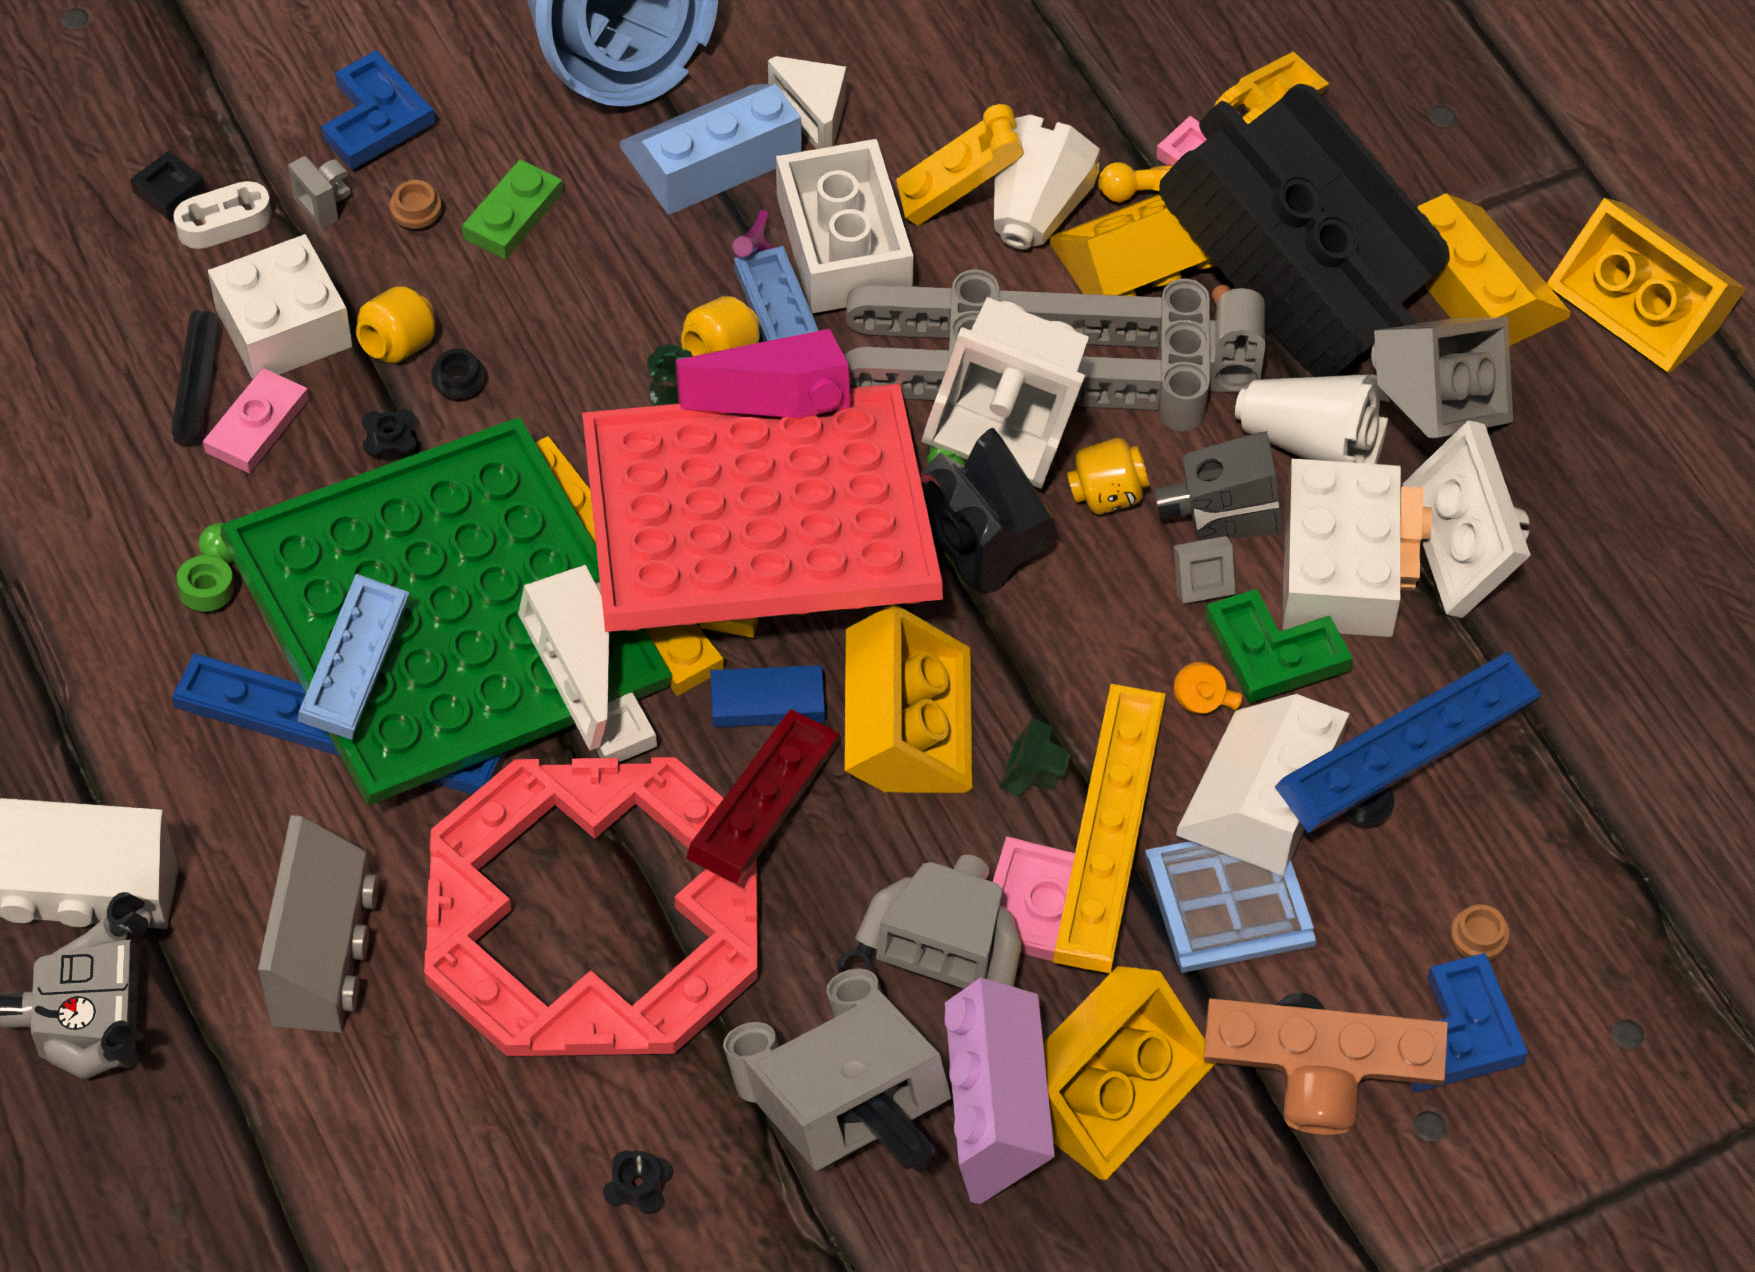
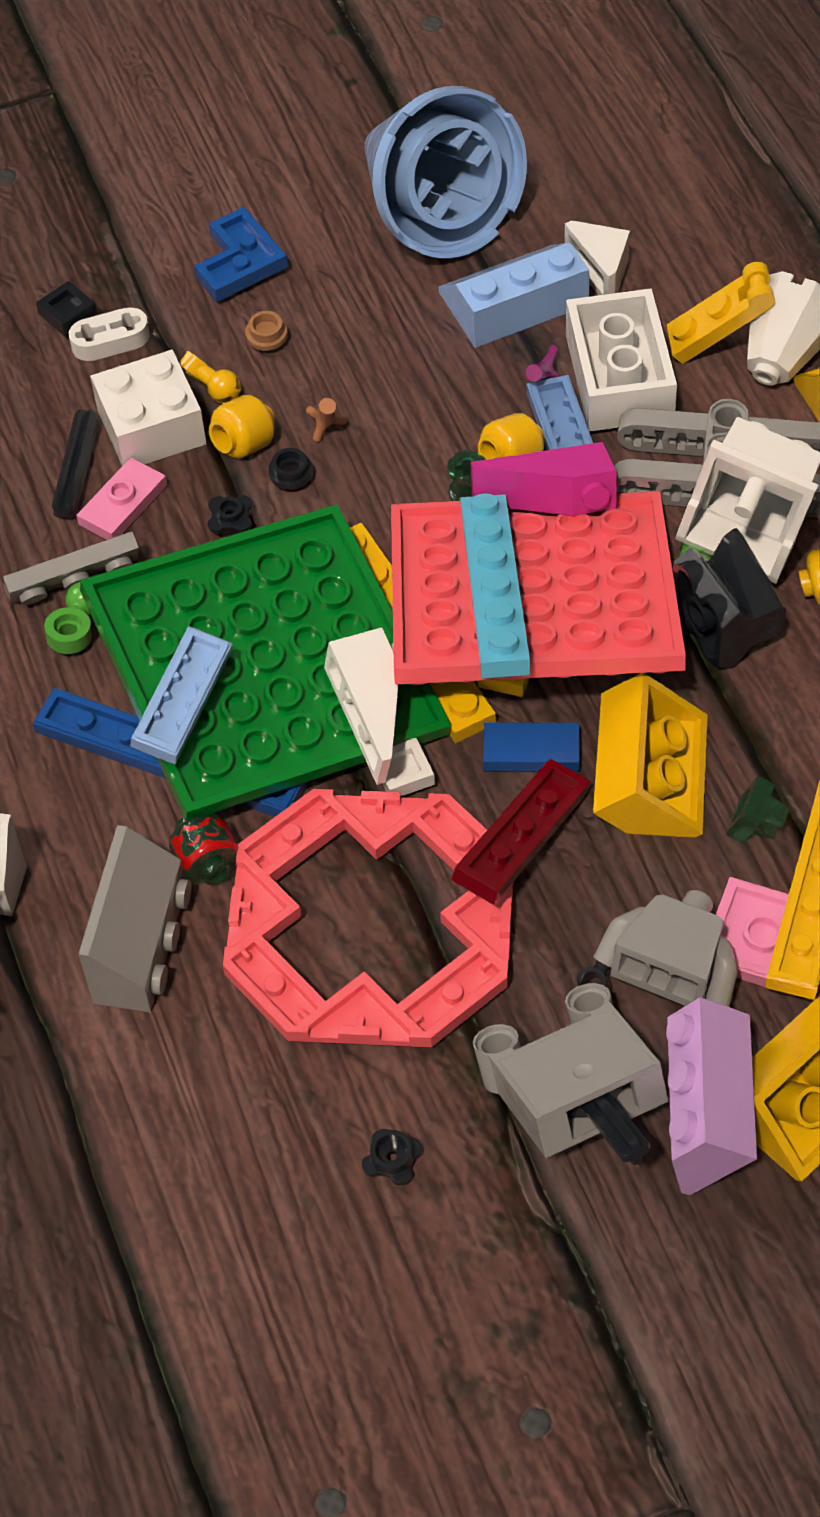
camera: 10 degrees right, 0 degrees up
(248, 490) = (34, 582): none -> light grey plate
(319, 189) = (188, 315): light grey tile -> none
(366, 273) = (221, 384): none -> yellow arm
(391, 836) = (204, 848): none -> clear green head
(494, 308) = (325, 416): none -> nougat bar
(512, 209) = (346, 338): bright green plate -> none
(714, 509) = (494, 587): none -> medium azure plate

